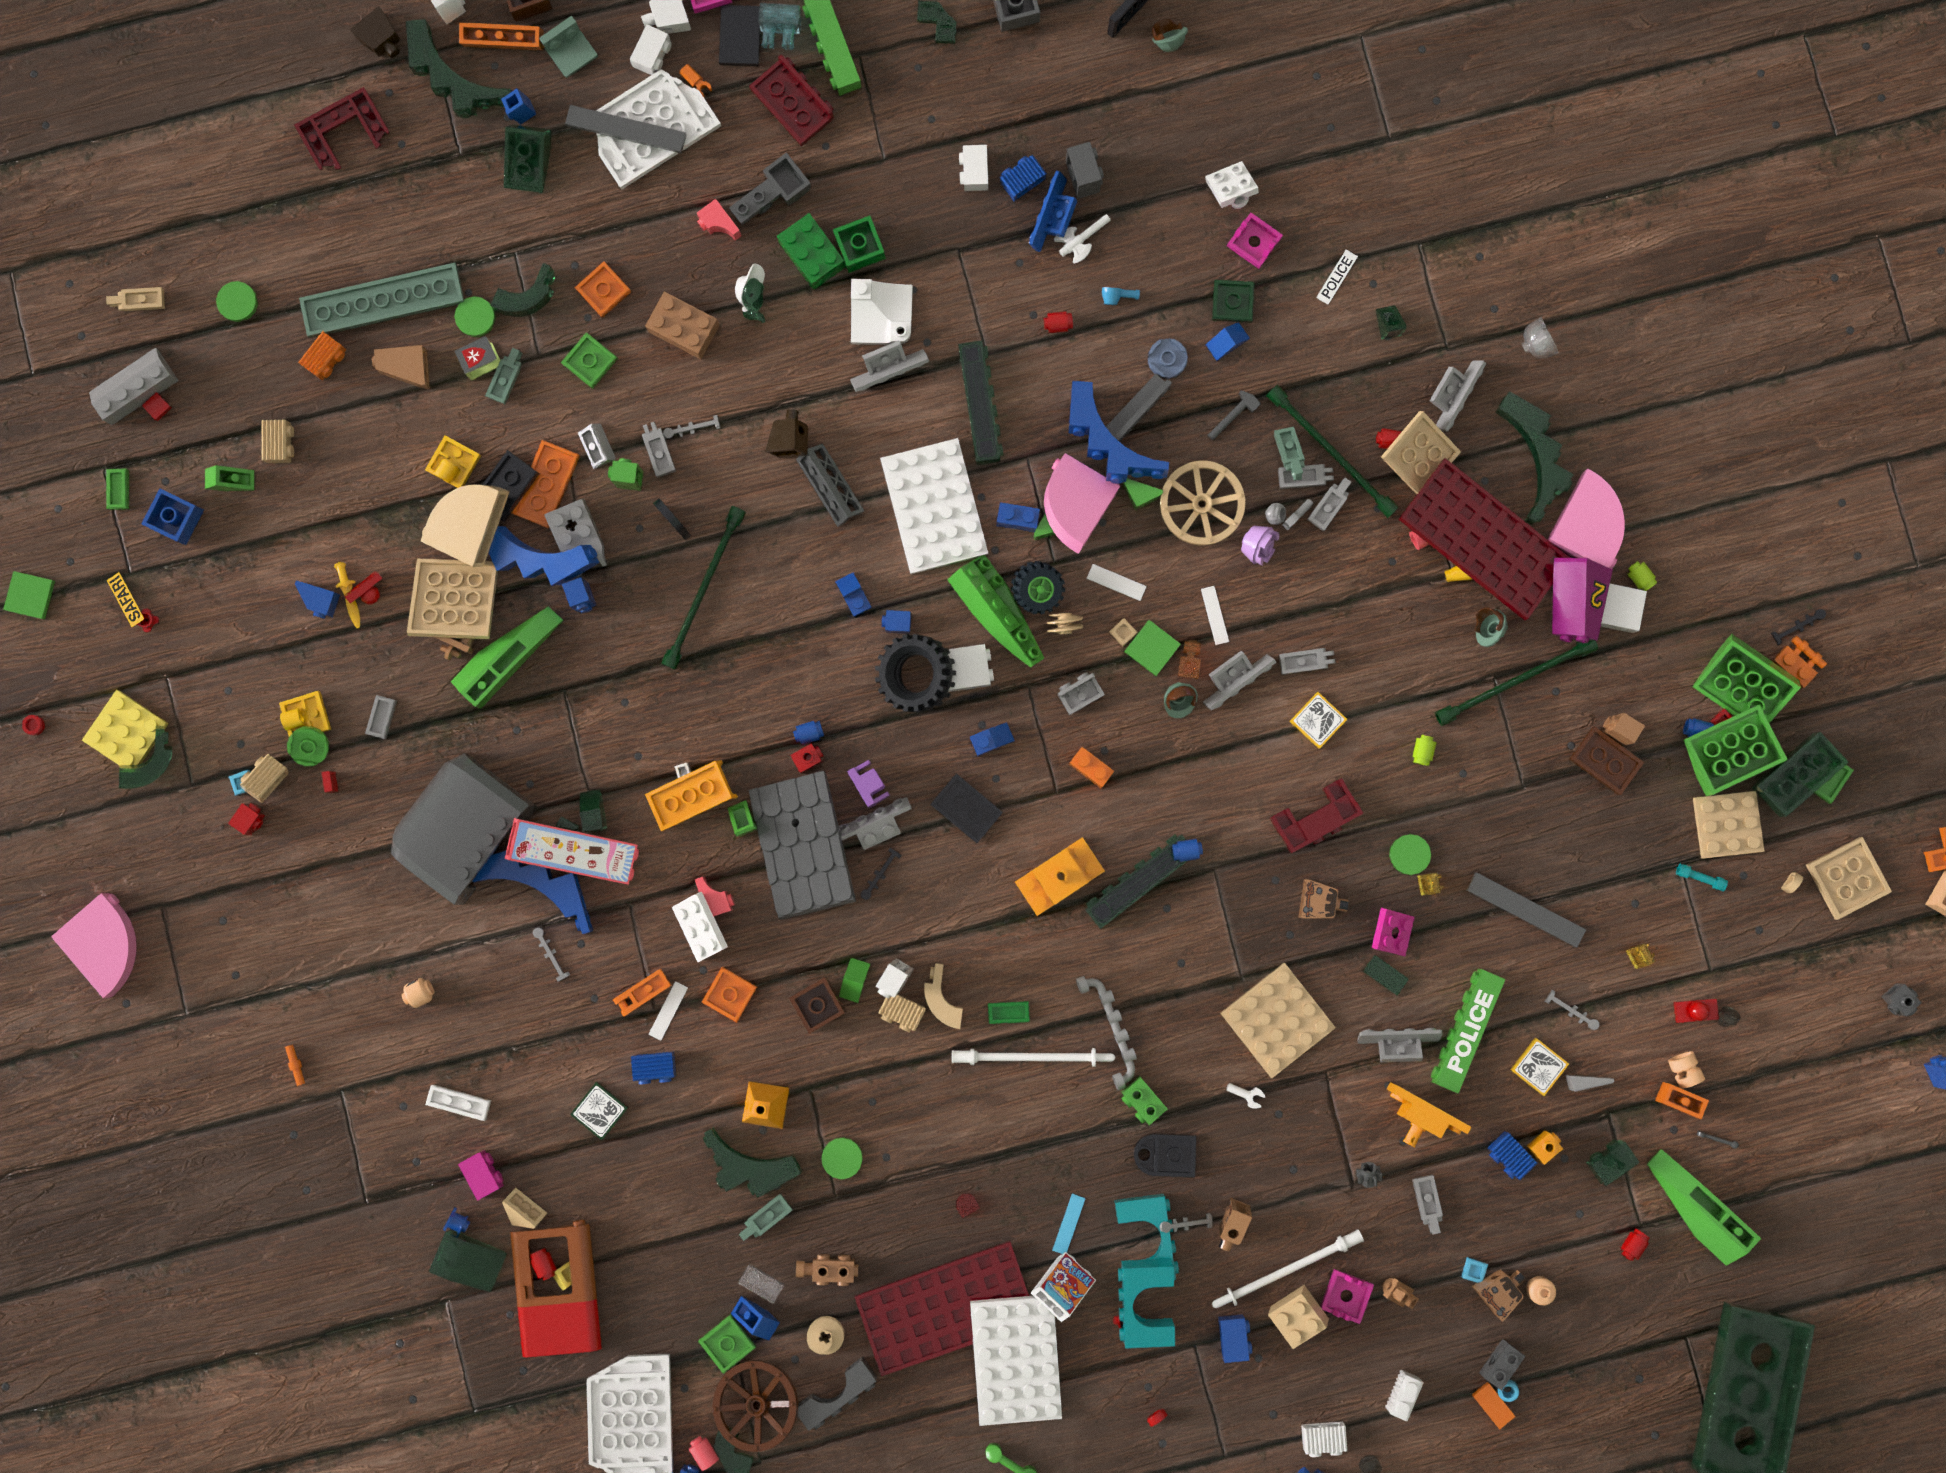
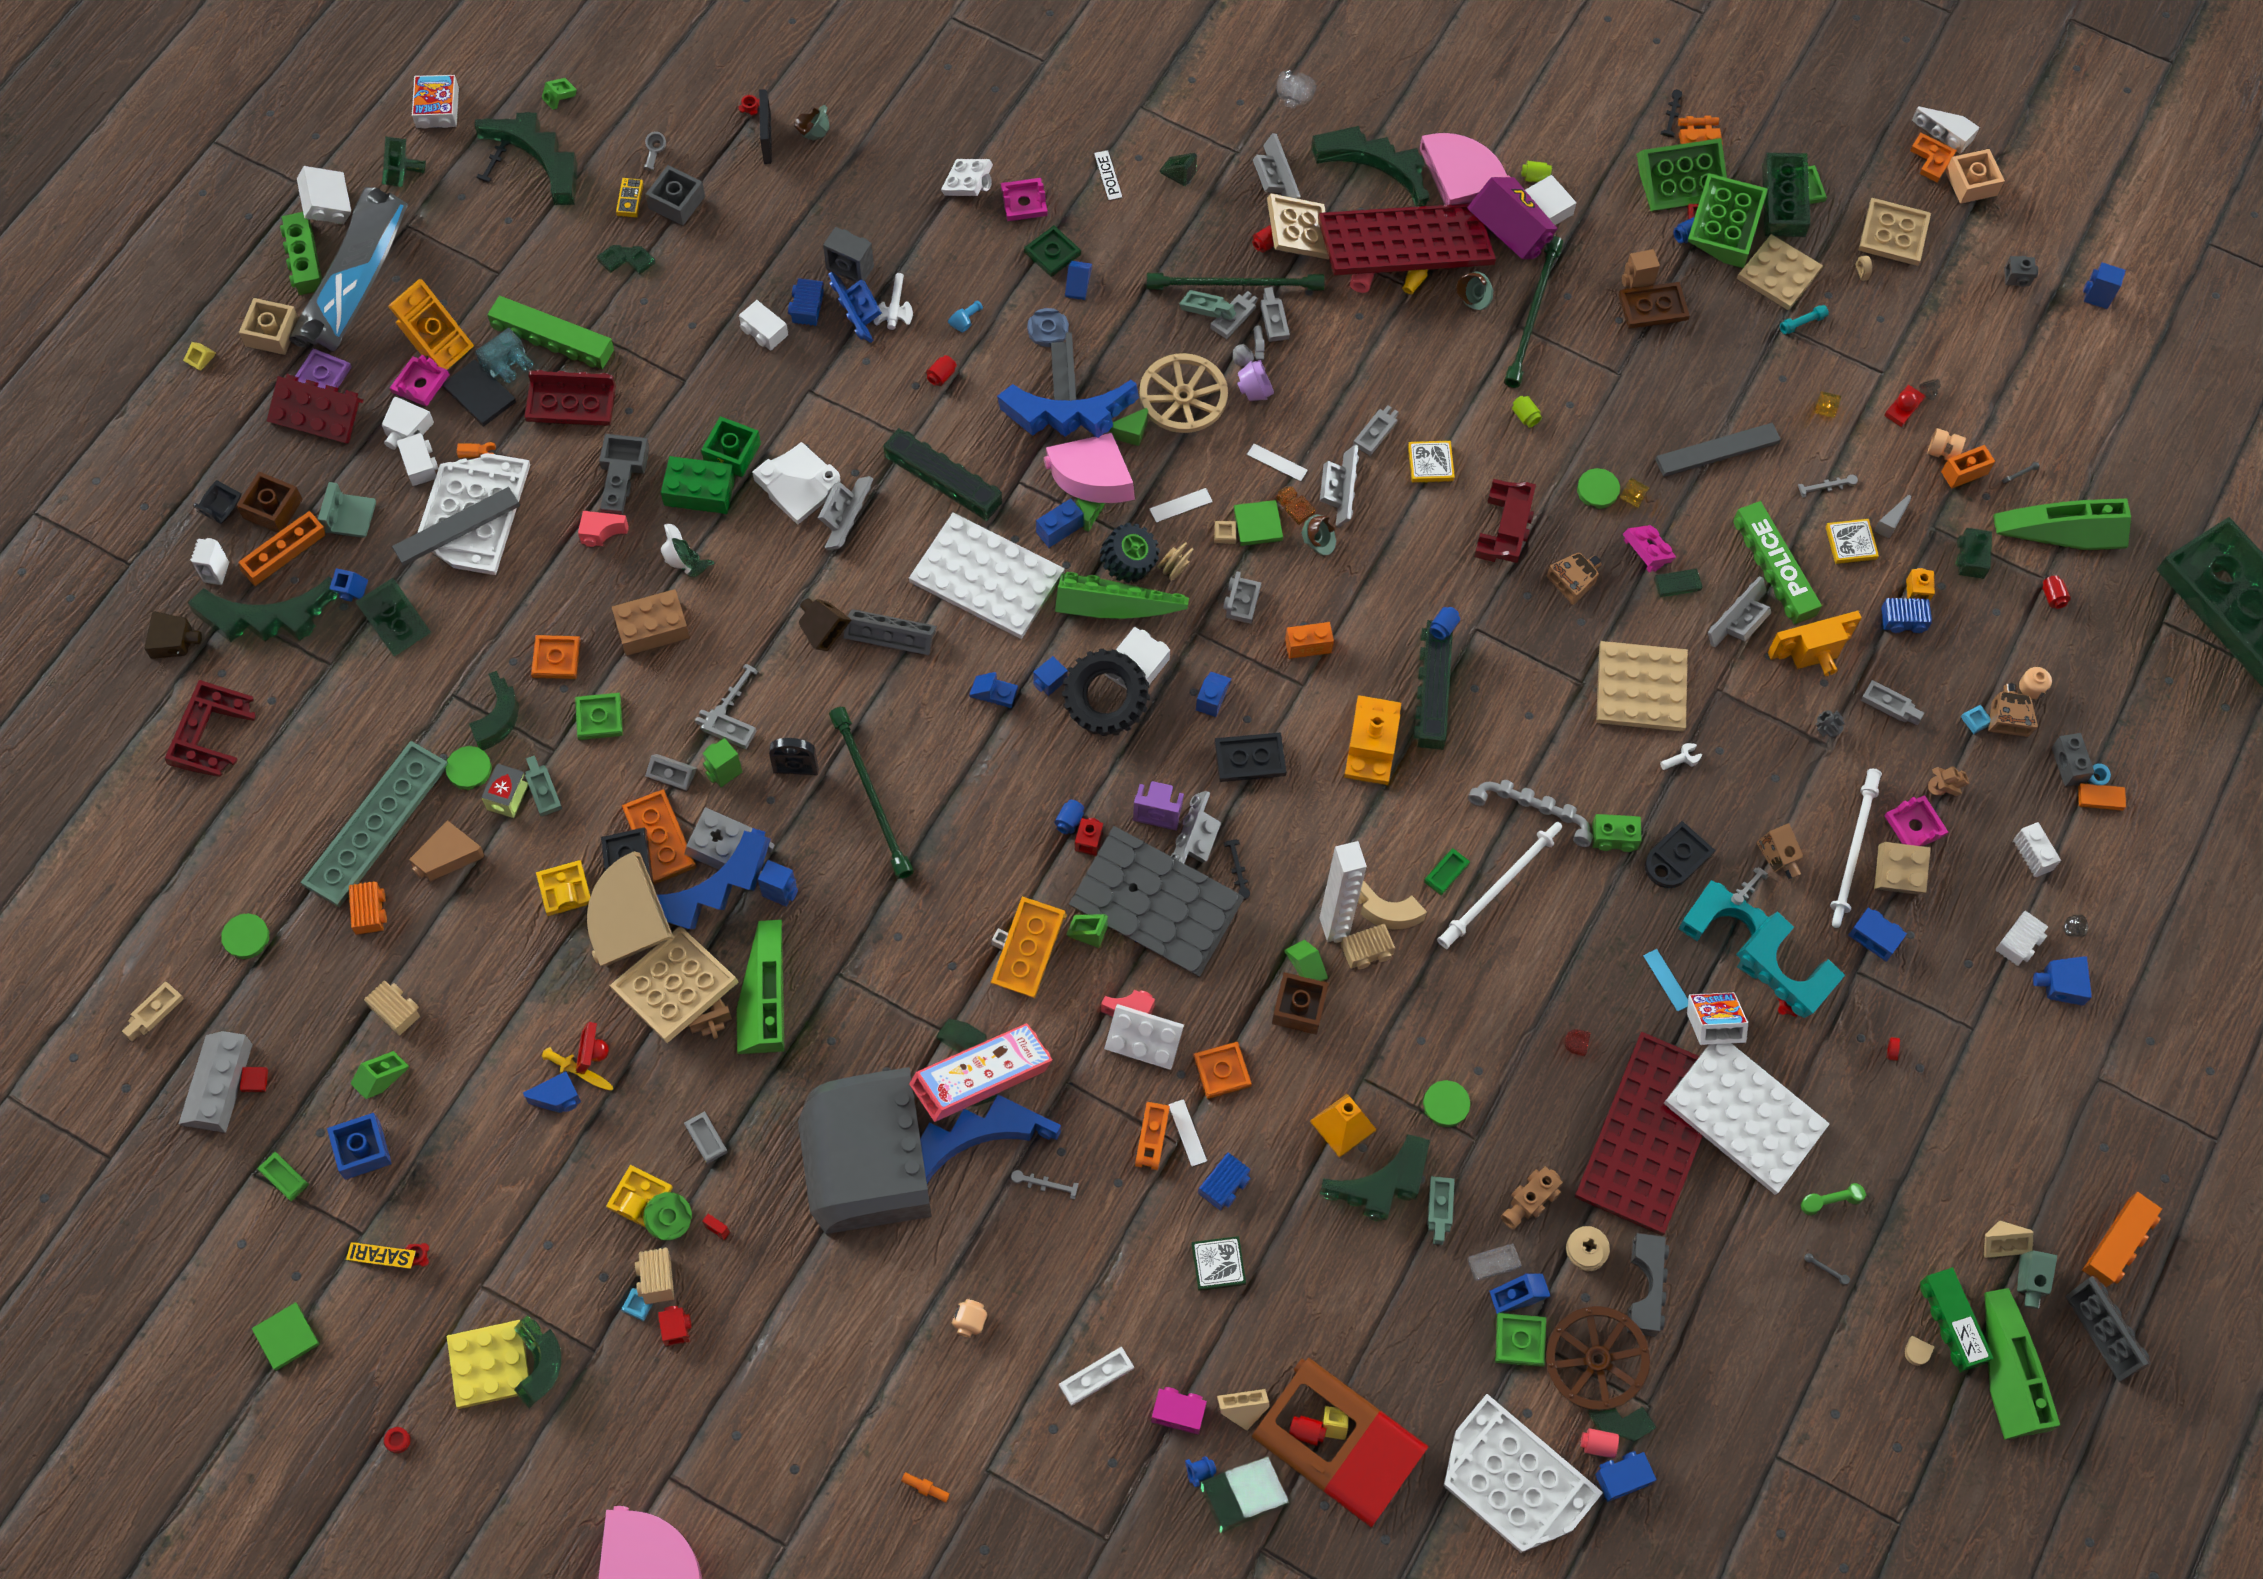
camera: 55 degrees left, 20 degrees down
(1248, 401) = (1138, 304): dark grey piece -> none

